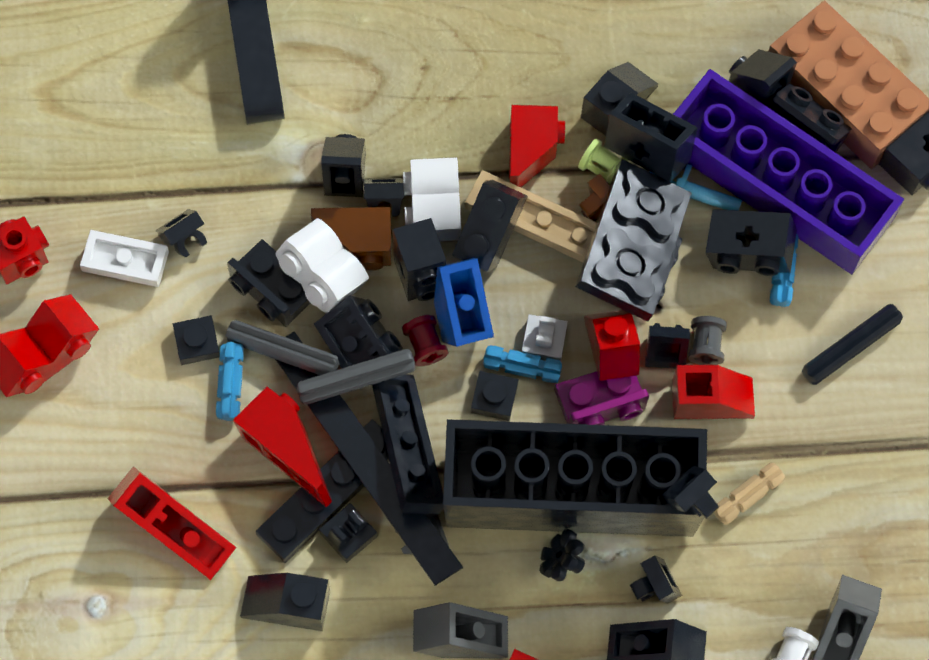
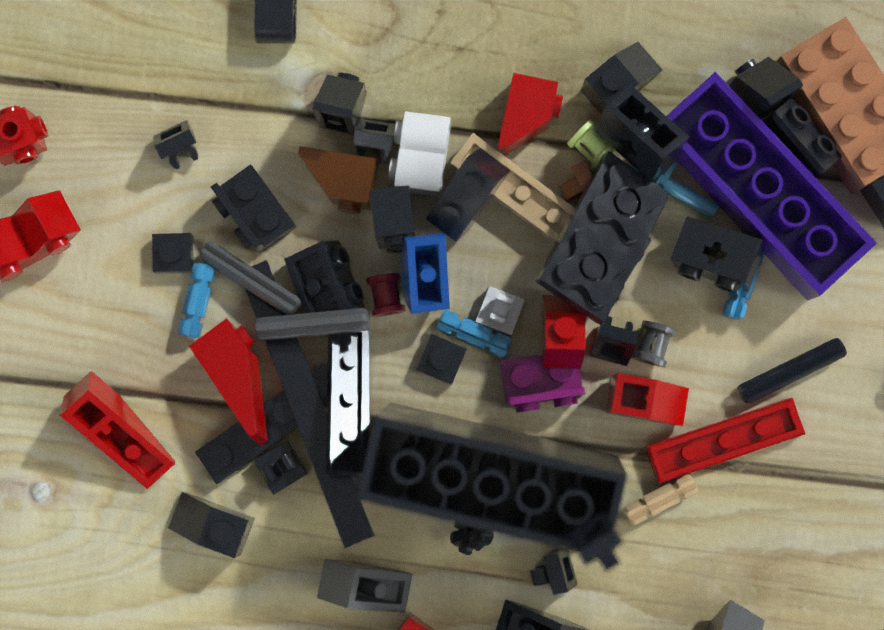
camera: 15 degrees right, 15 degrees up
(124, 258) = (117, 160): white plate -> none
(321, 265) = (299, 205): white brick -> none
(800, 424) = (724, 440): none -> red tile

